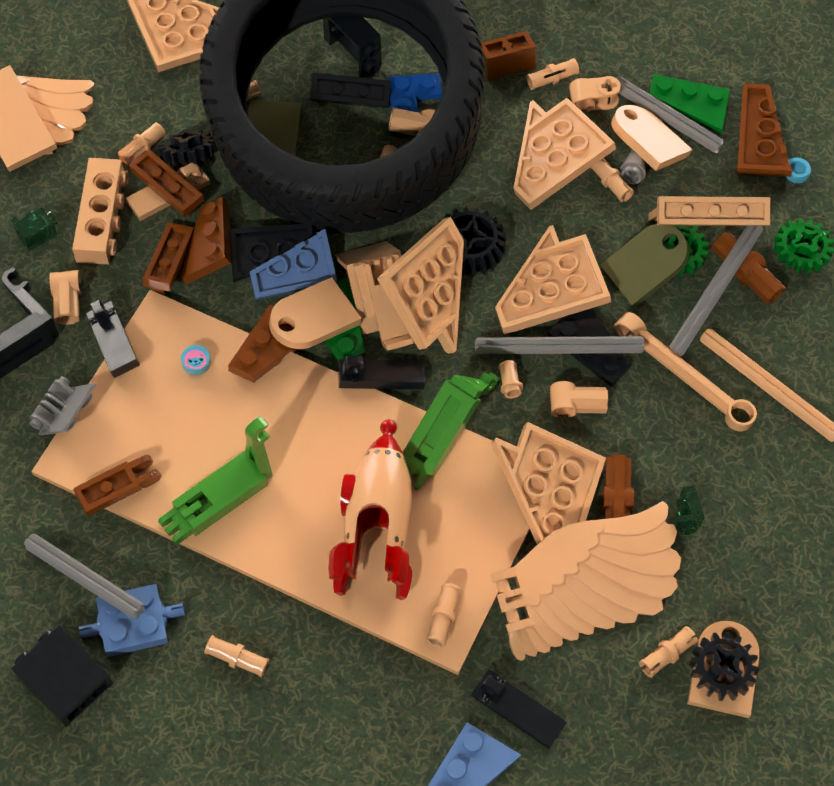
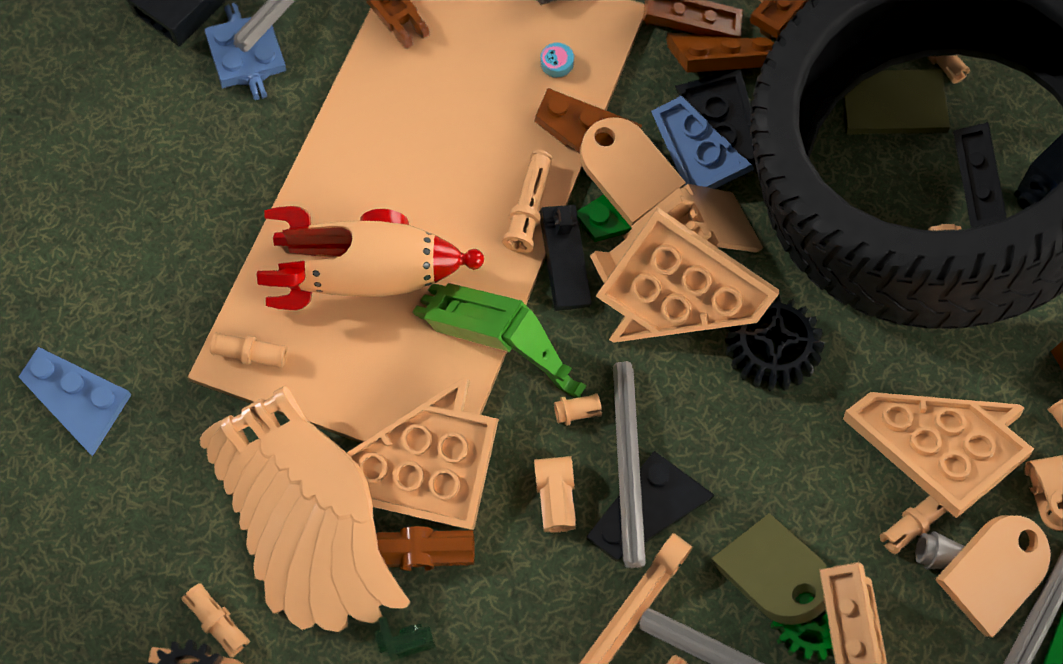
camera: 90 degrees right, 5 degrees up
(222, 489) = (397, 111): bright green hinge -> none
(236, 656) = (205, 151): light nougat pin -> none
(343, 394) = (526, 214): none -> light nougat pin
(518, 708) = (146, 449): black hinge -> none
(553, 284) = (727, 453): light nougat wing -> none

